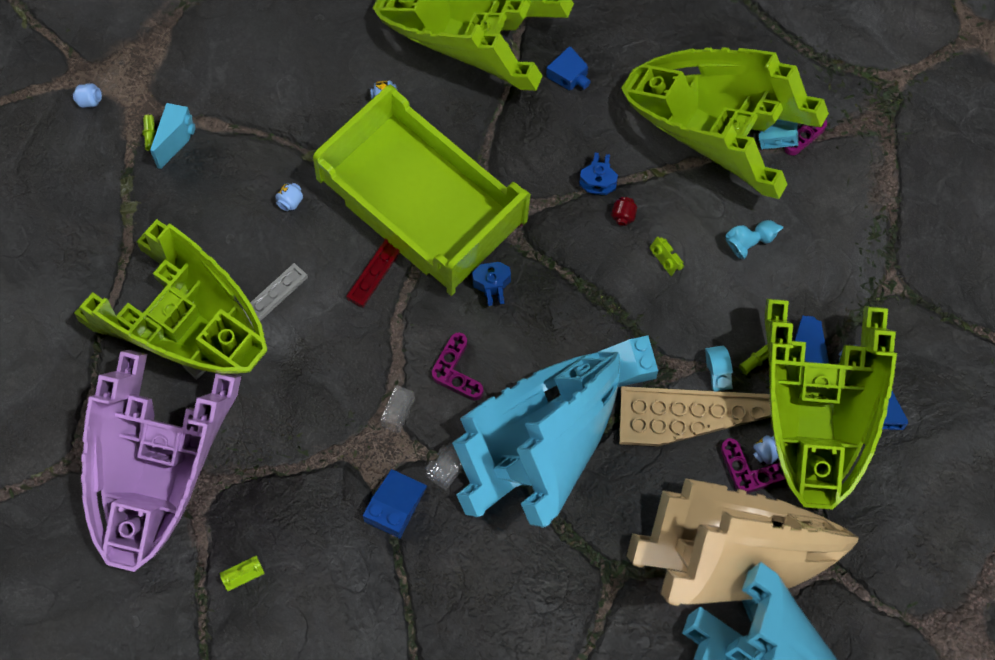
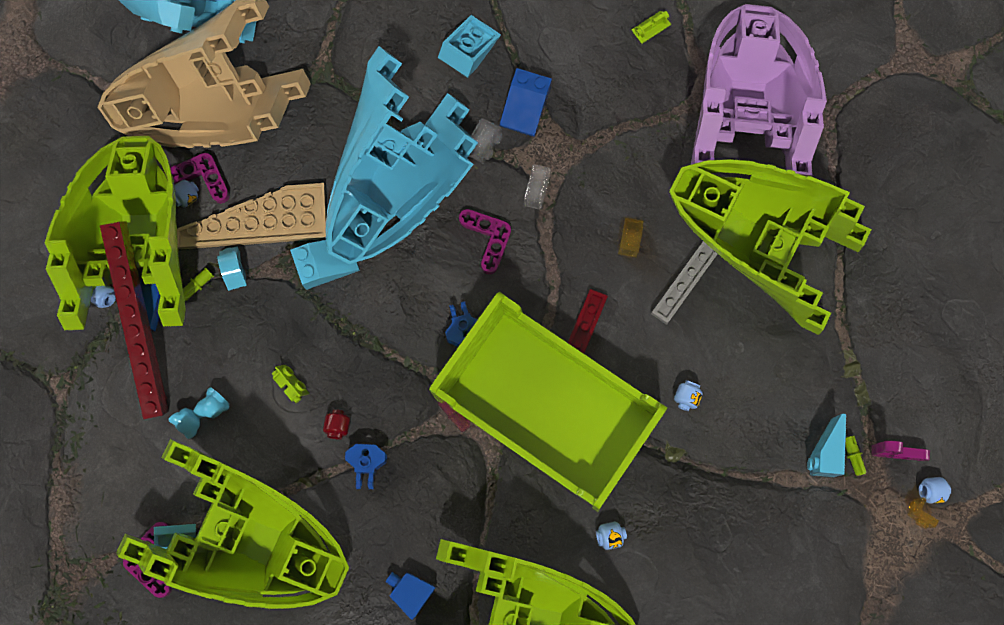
camera: 175 degrees right, 10 degrees up
(106, 76) = (922, 518): none -> clear yellow bracket
(117, 128) = (895, 449): none -> magenta beam
(311, 349) = (631, 237): none -> clear yellow slope
(446, 575) = (468, 45): none -> medium azure slope
(815, 315) = (134, 319): none -> dark red brick

